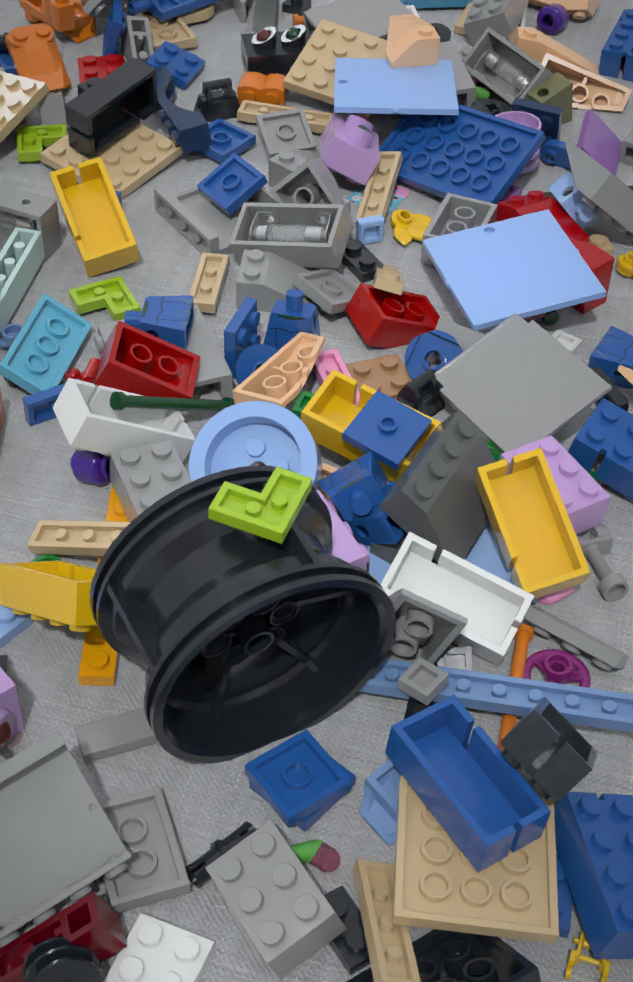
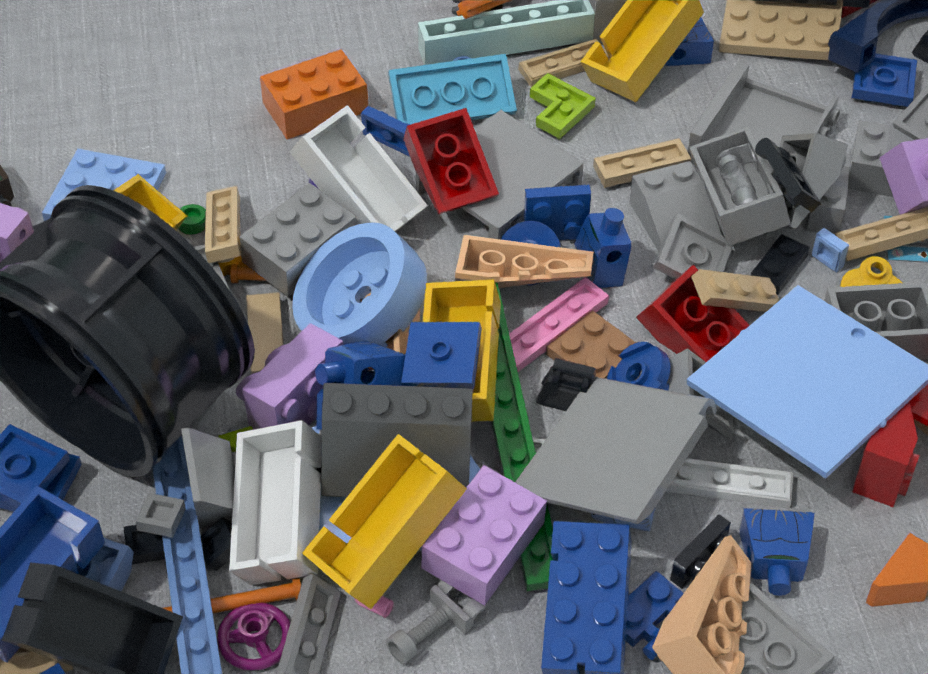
camera: 65 degrees right, 5 degrees up
(56, 277) = (557, 63): none -> tan tile
(119, 401) = (407, 195): dark green bar -> none
(165, 318) = (525, 149): blue torso -> none
(232, 183) = (795, 111): blue plate -> none
(263, 513) = (110, 256): lime plate -> none
(325, 194) = (788, 175): none -> black plate

